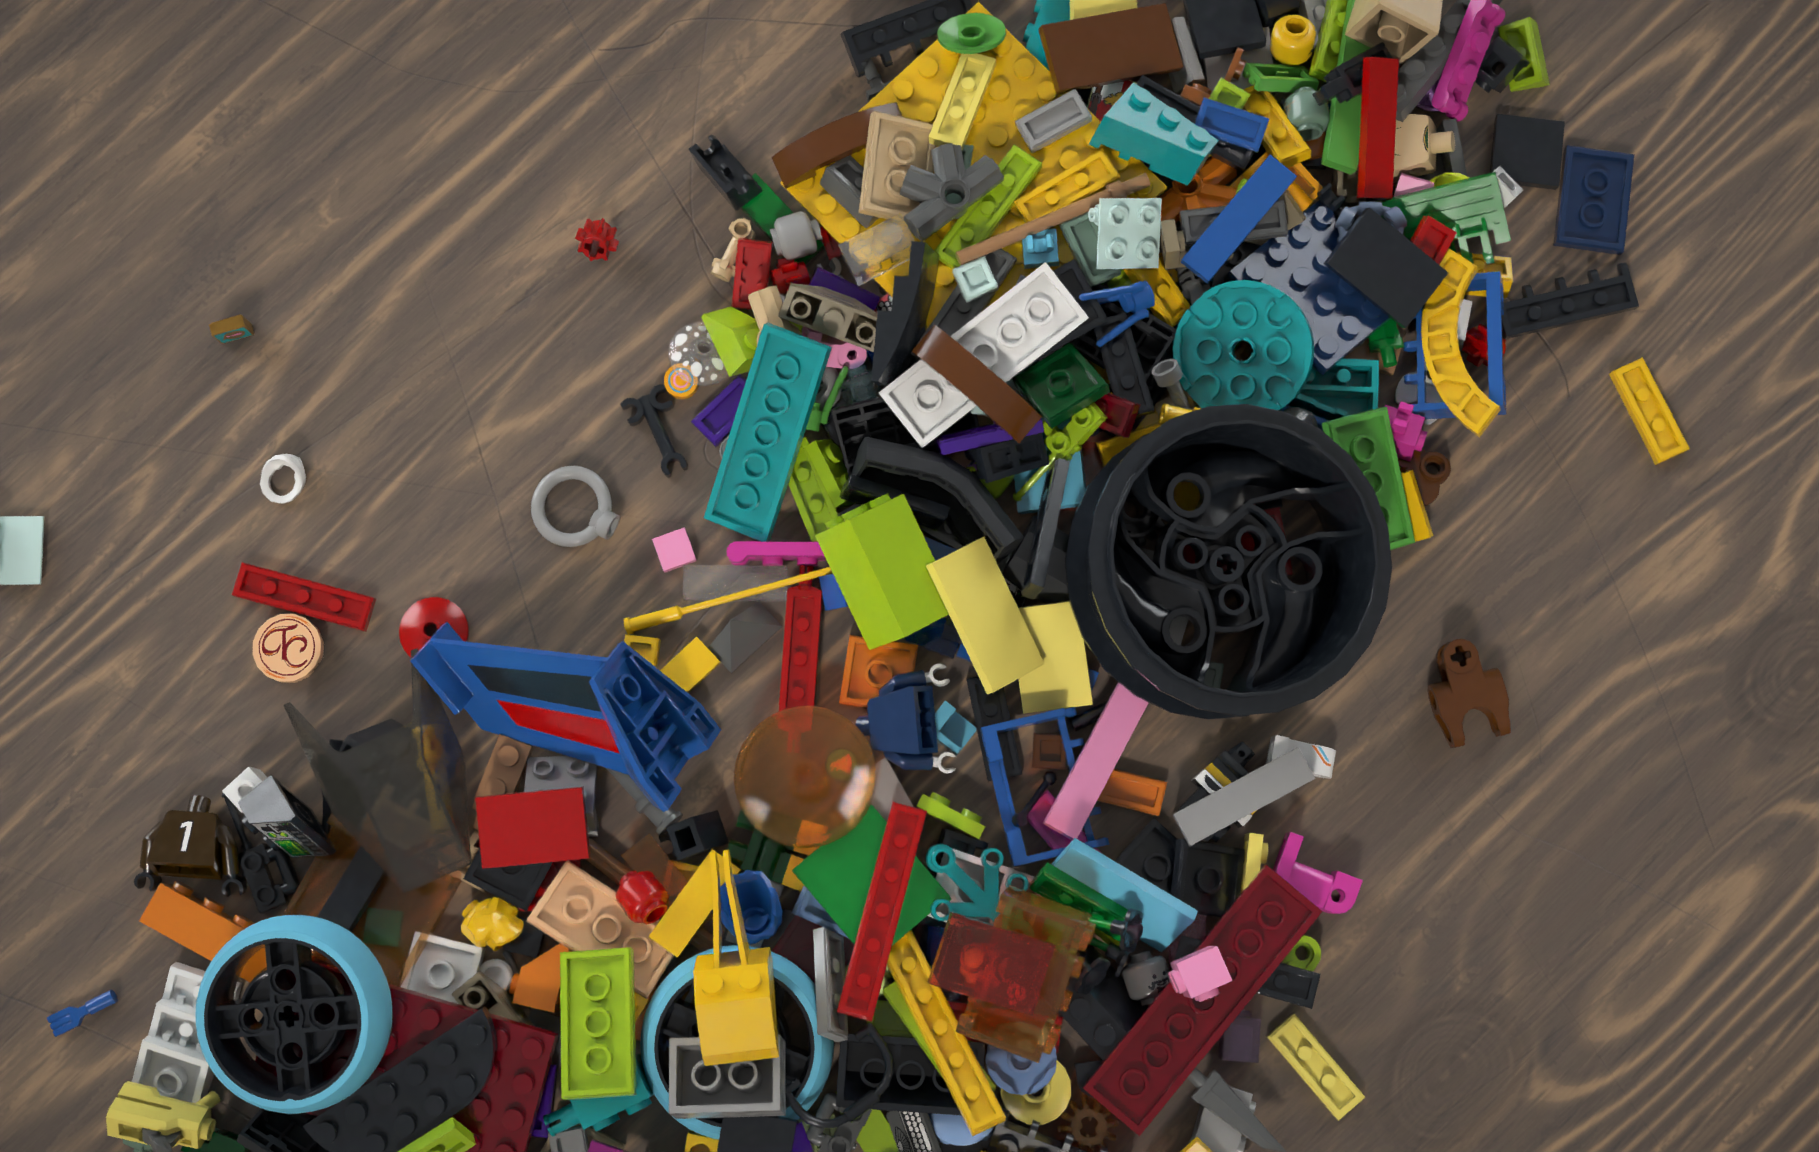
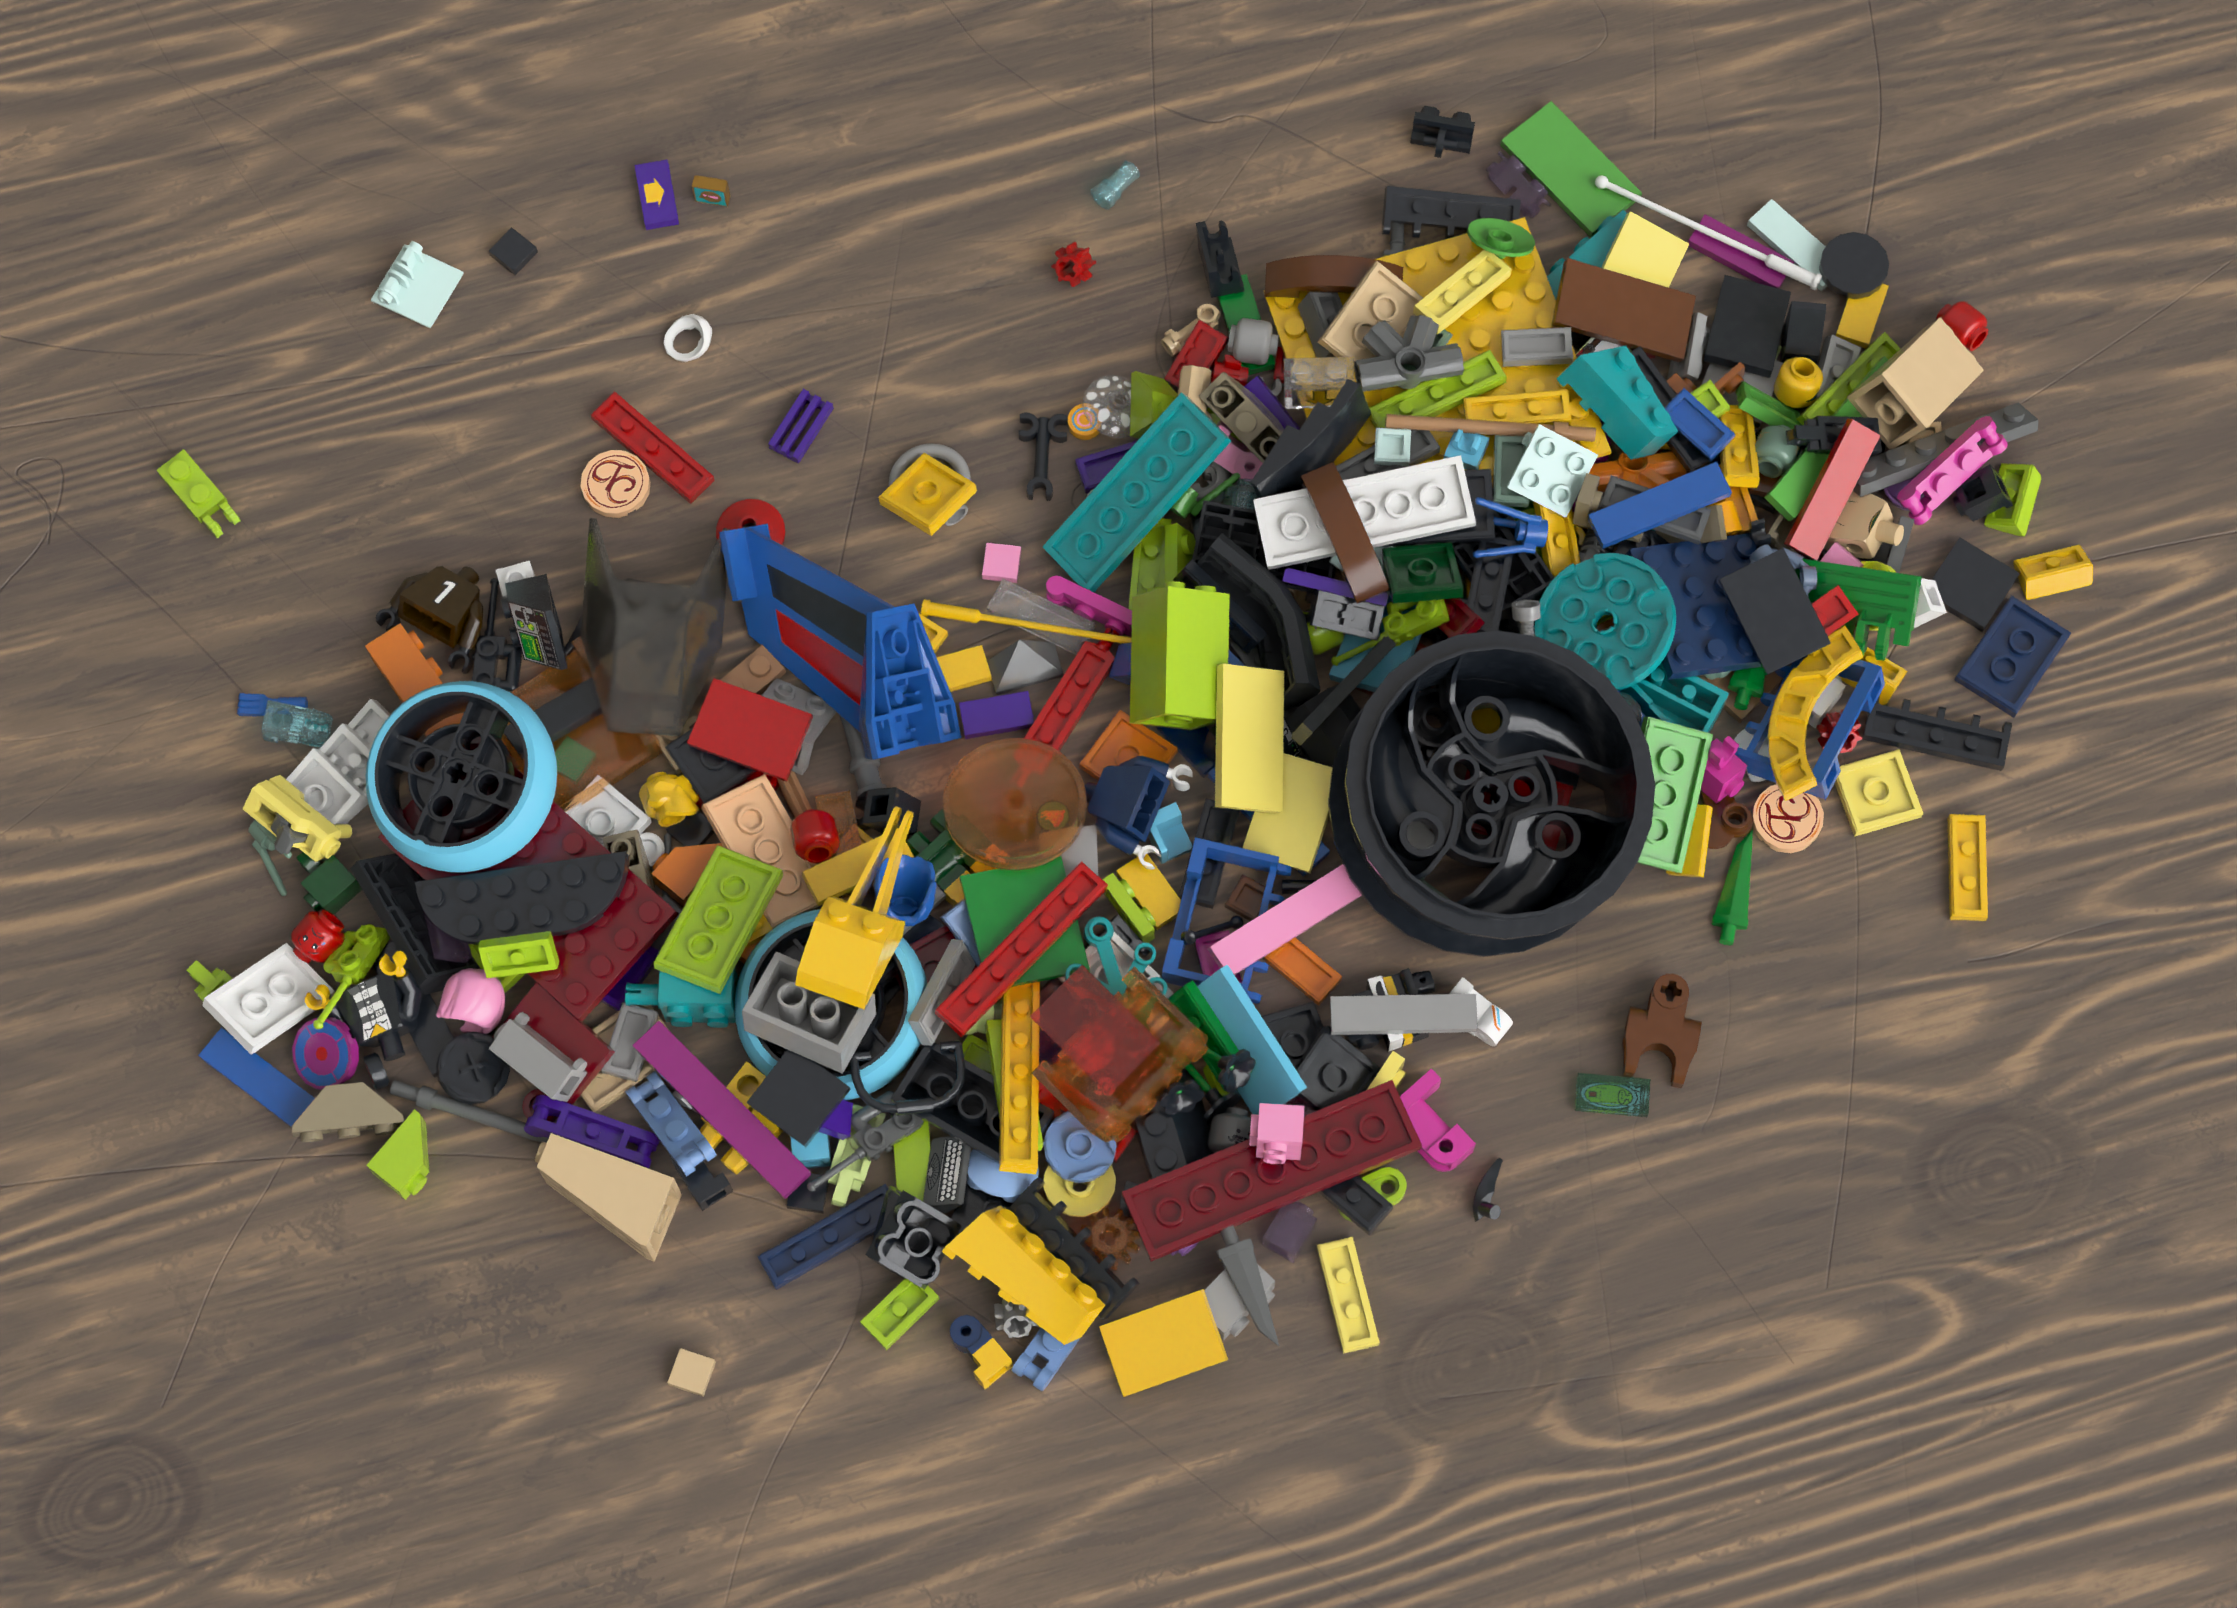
camera: 25 degrees right, 10 degrees down
(79, 473) = (513, 251): none -> black tile
(114, 1023) = (295, 724): none -> clear light blue leg
(183, 355) = (656, 194): none -> dark purple tile
(429, 481) = (814, 402): none -> dark purple tile
(577, 522) = (927, 494): none -> yellow tile
(593, 152) = (1110, 189): none -> clear light blue pin
(742, 693) = (996, 715): none -> dark purple tile
(961, 788) = (1151, 890): none -> yellow tile
(1387, 918) = (1482, 1199): none -> black bar
(1451, 770) = (1612, 1095): none -> clear green tile
(1466, 540) = (1734, 898): none -> green bar
(1473, 454) = (1787, 824): none -> light nougat tile
(1541, 382) = (1877, 793): none -> light yellow tile
(1591, 104) = (2054, 572): none -> yellow slope

